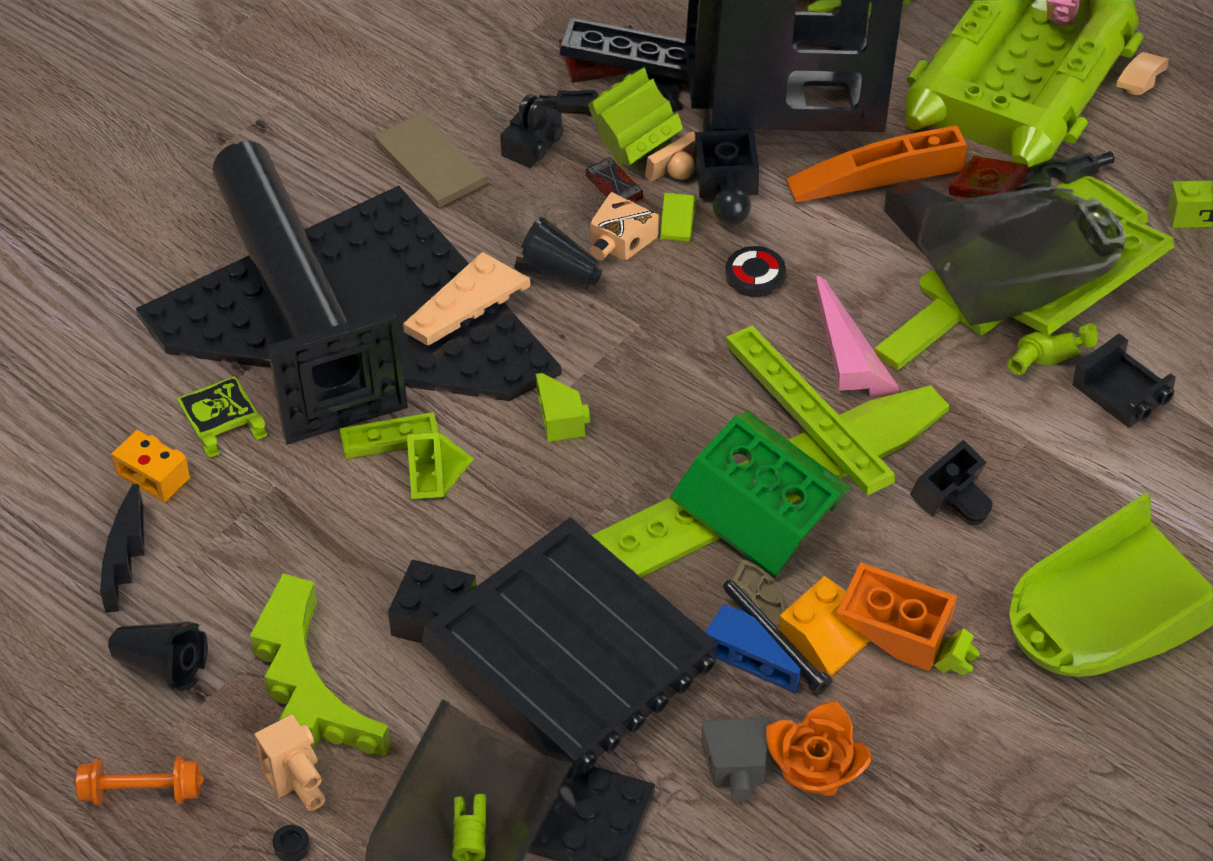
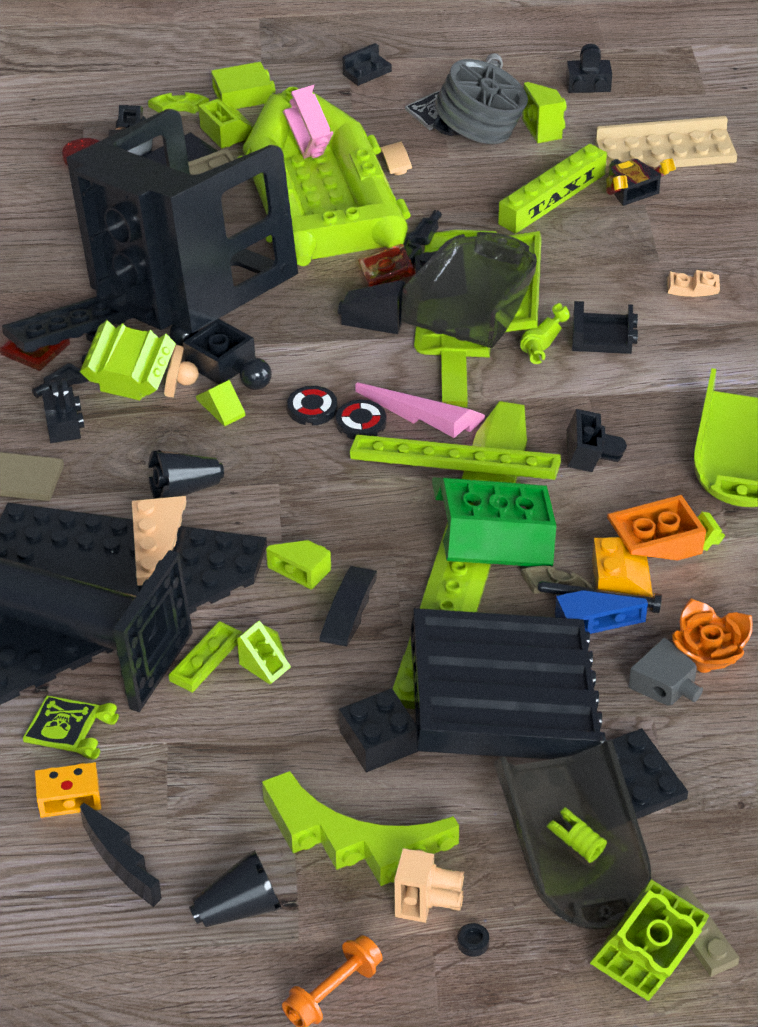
camera: 45 degrees left, 5 degrees down
(539, 480) = (348, 606): none -> black slope
(611, 178) = (153, 411): tile -> none
(621, 228) = (197, 430): light nougat torso -> none
(781, 314) = (361, 418): none -> tile
(883, 164) = (313, 294): orange wedge -> none

